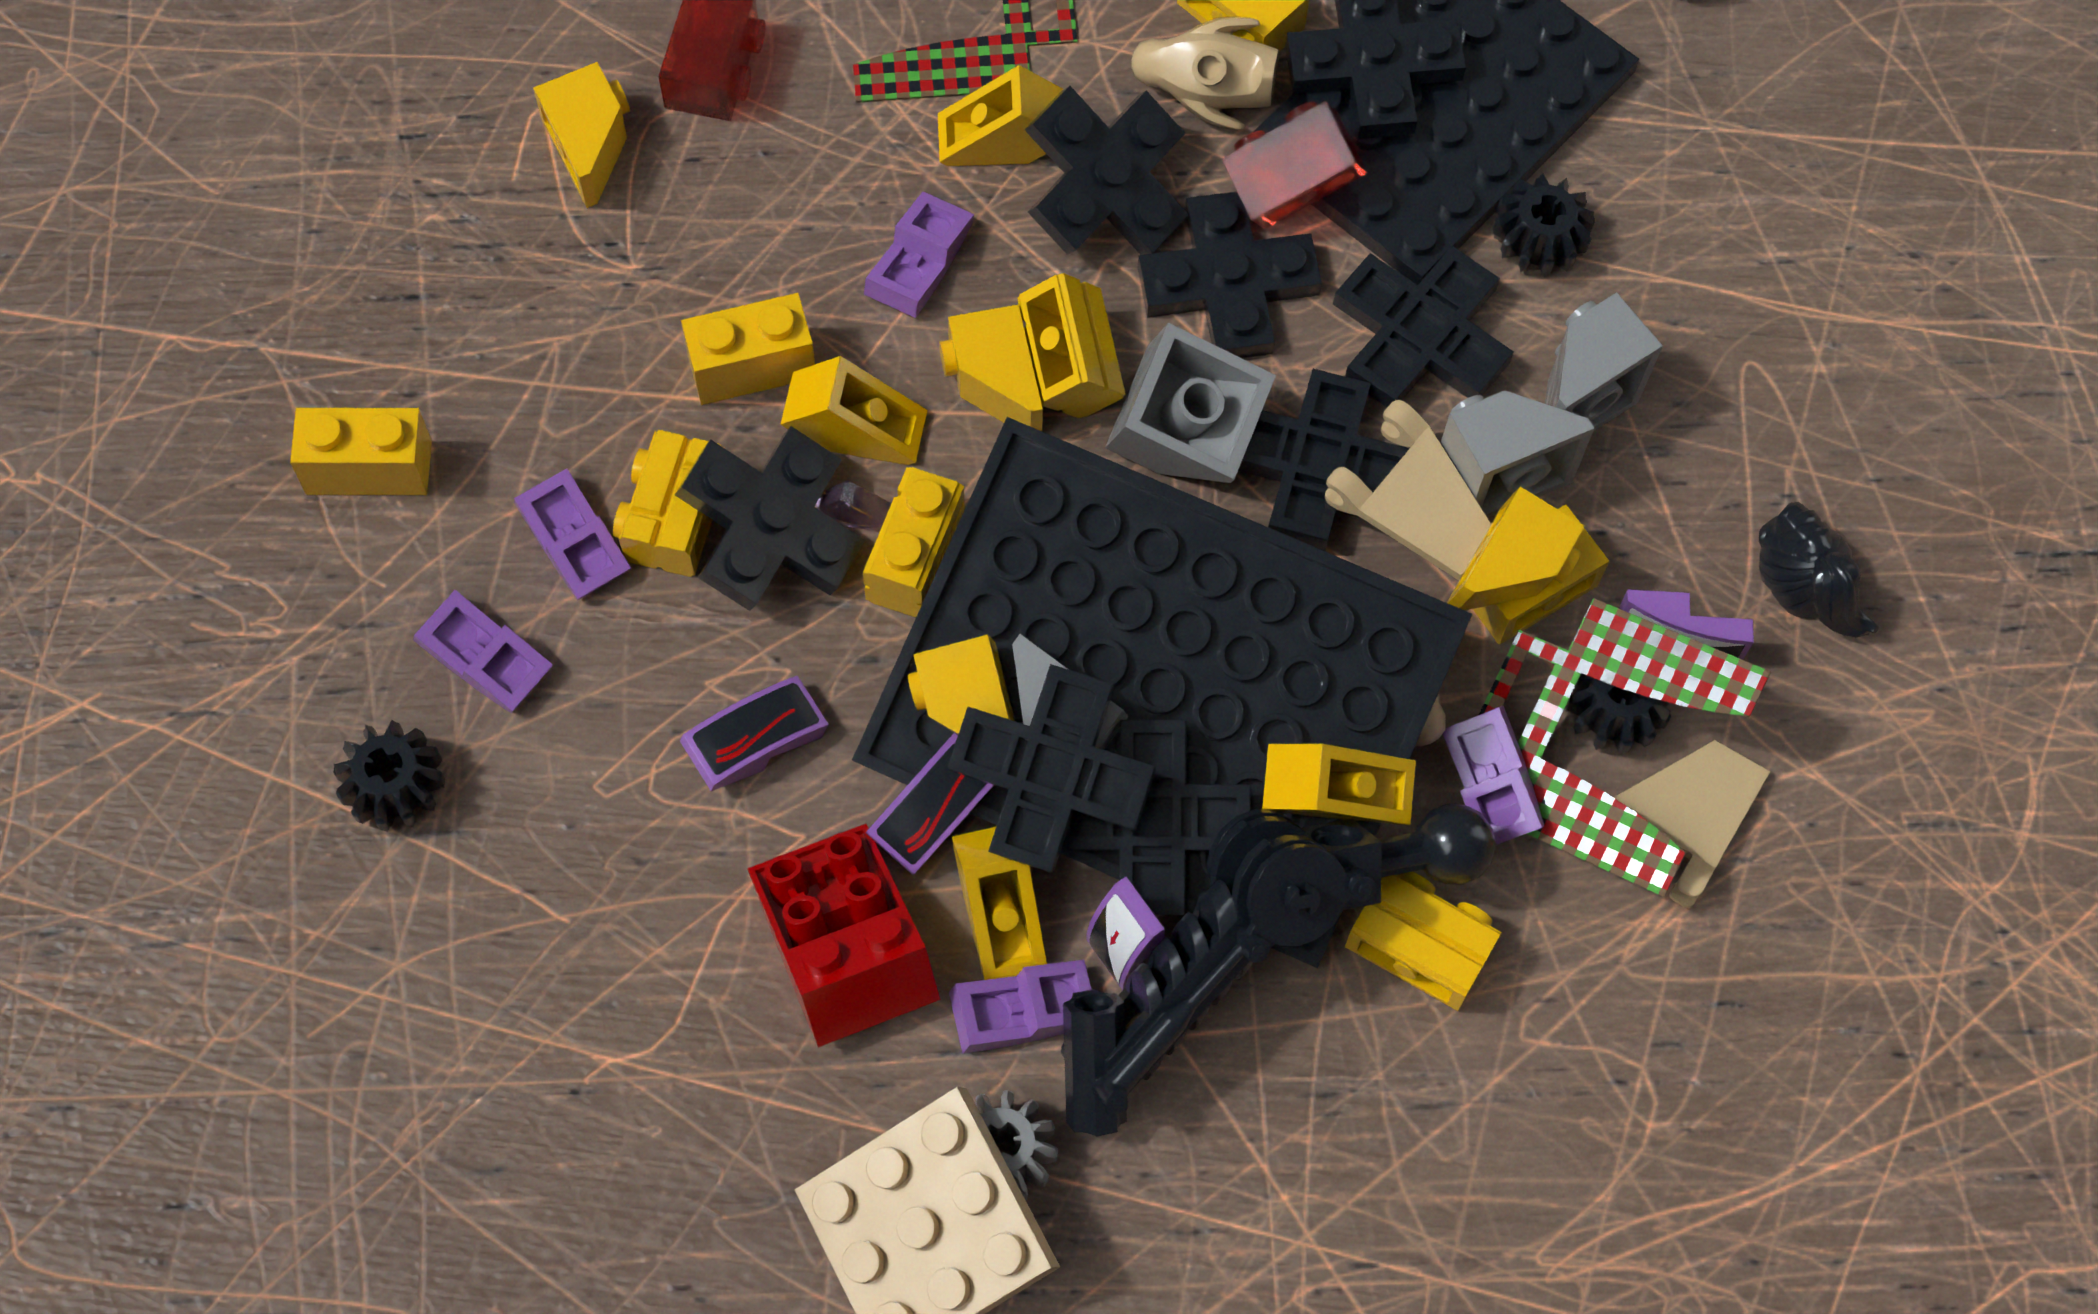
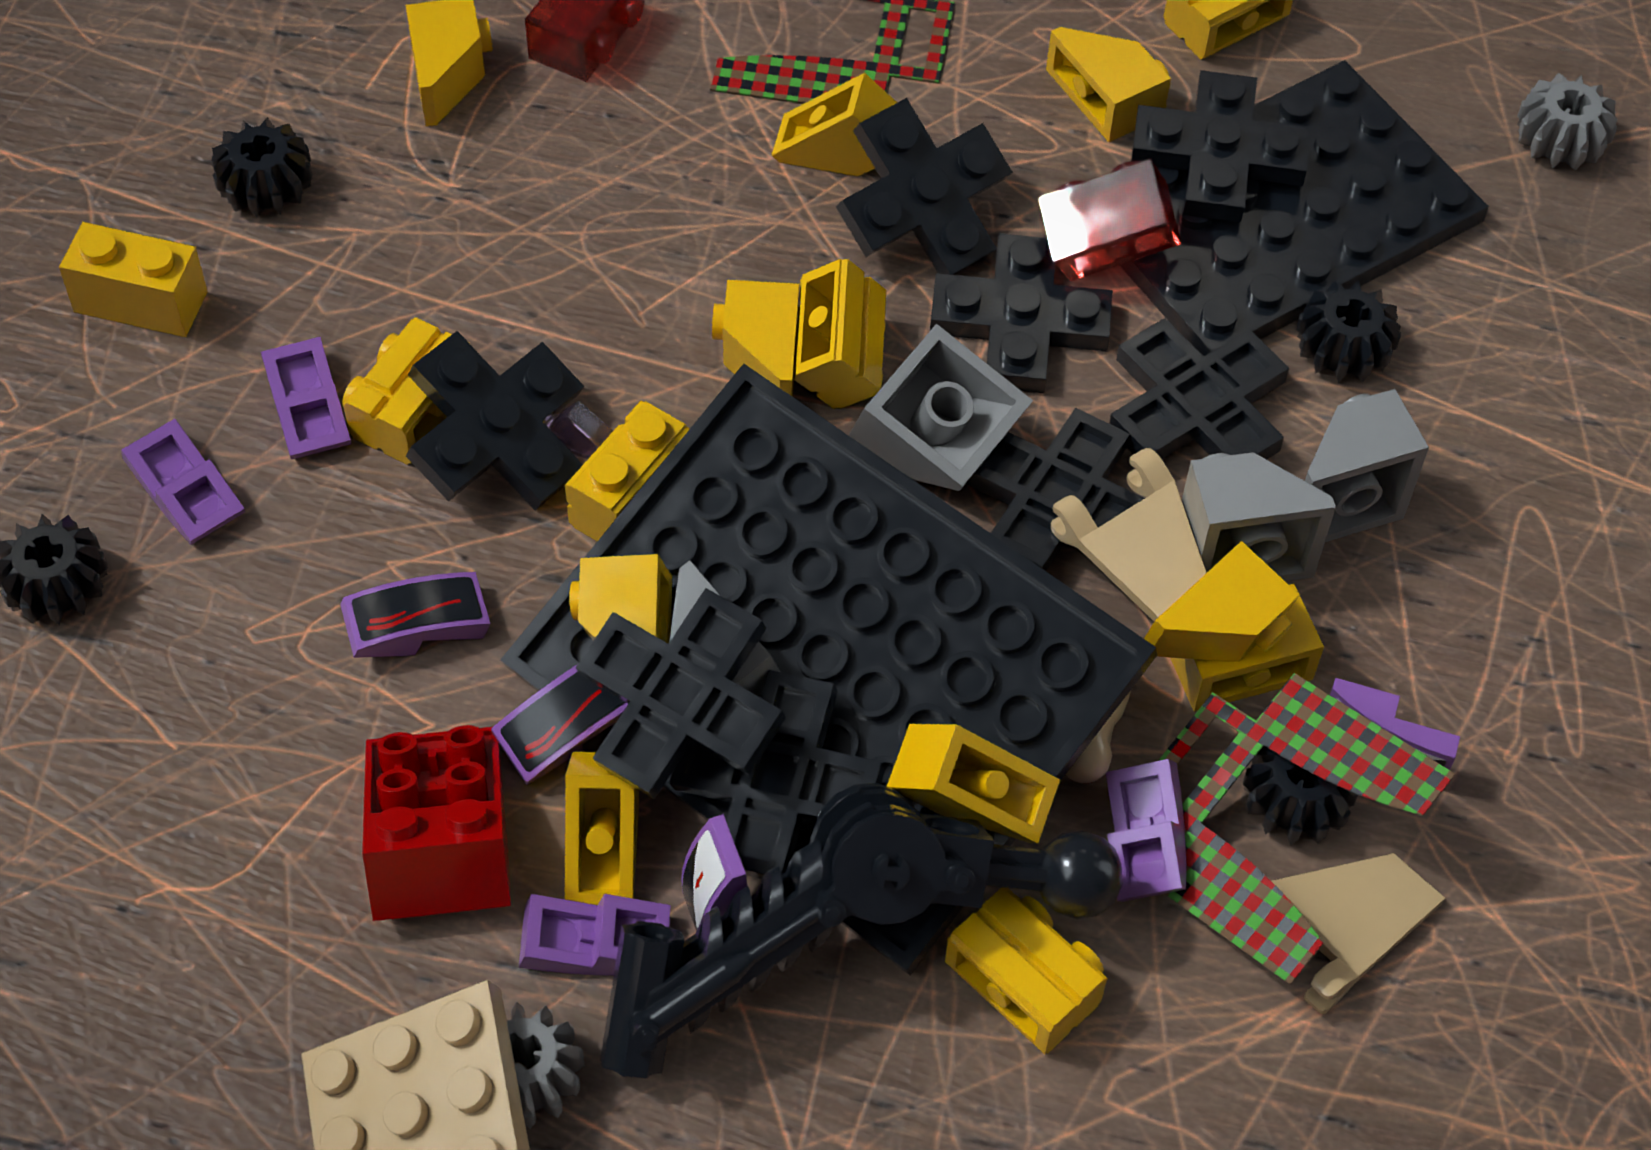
camera: 15 degrees right, 10 degrees down
(444, 297) = (262, 167): none -> black gear
(747, 347) = (529, 270): yellow brick -> none
(853, 412) = (611, 348): yellow slope -> none
(920, 255) = (728, 228): medium lavender slope -> none
(1211, 69) = (1058, 125): tan animal -> none
(1812, 571) = (1540, 712): black hair -> none

